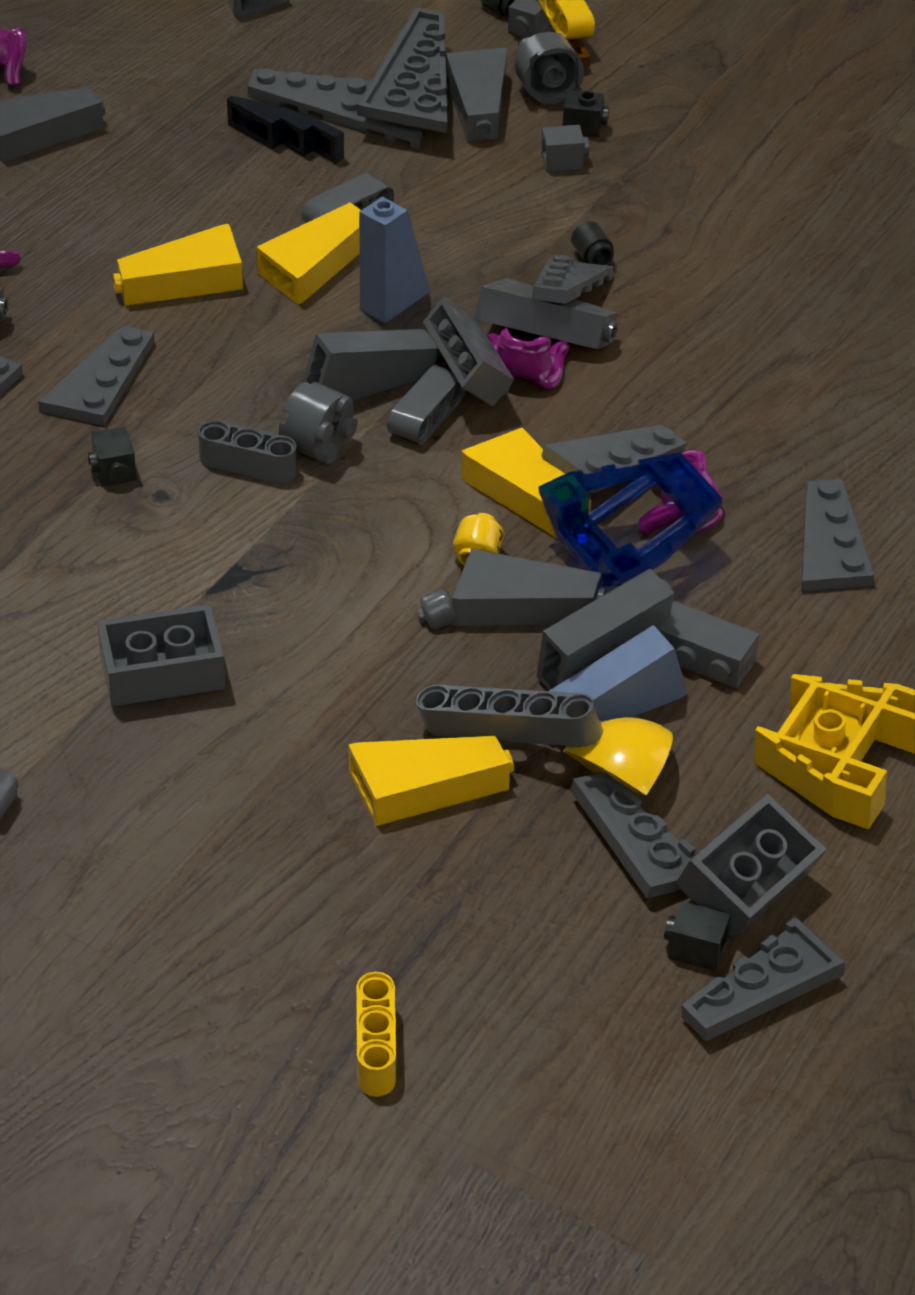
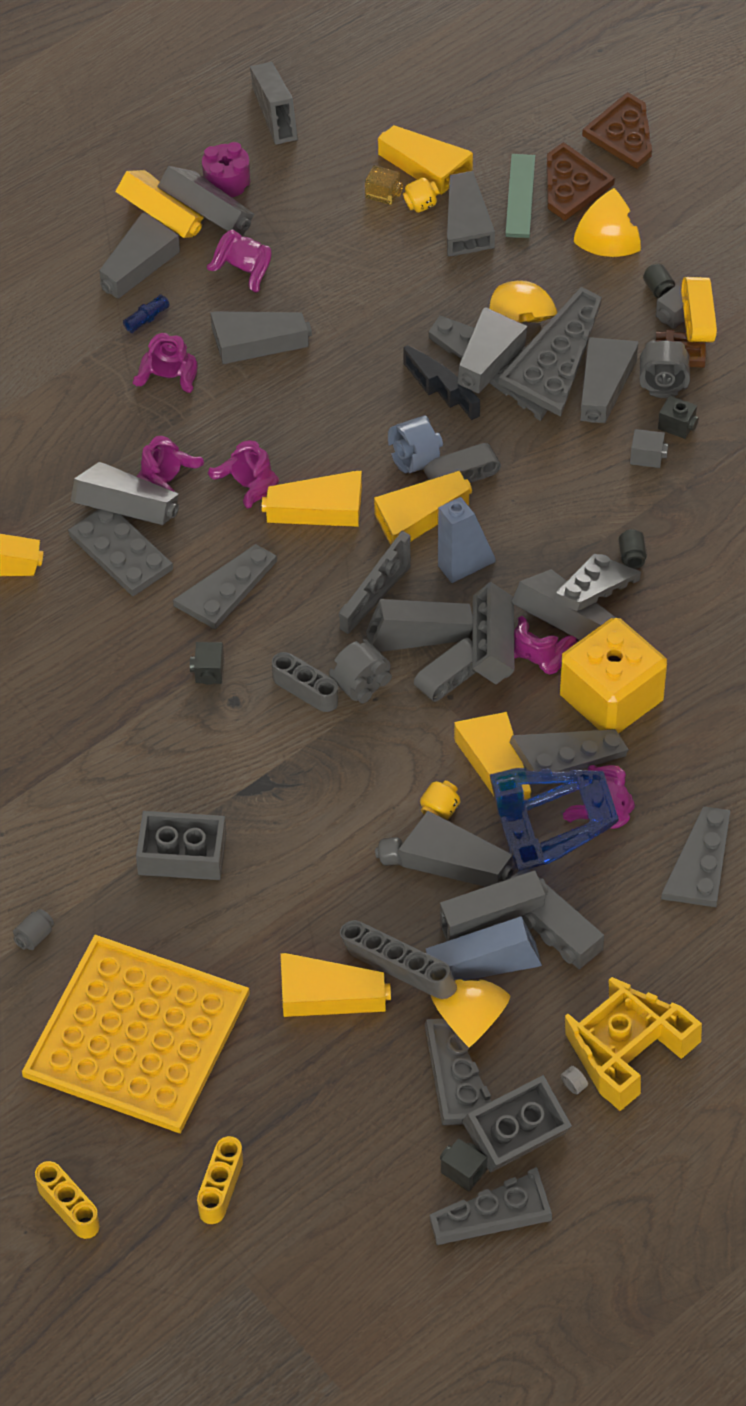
camera: 20 degrees right, 10 degrees up
(83, 248) = (250, 468): none -> magenta hair
(168, 1110) = (62, 1188): none -> yellow beam
(183, 888) = (136, 1033): none -> yellow plate
(281, 187) = (414, 444): none -> sand blue brick
(298, 331) = (380, 580): none -> dark grey wing
(336, 79) = (490, 349): none -> slope
(347, 38) = (523, 302): none -> yellow brick
(636, 364) = (613, 692): none -> yellow plate
(797, 804) = (574, 1080): none -> light grey axle

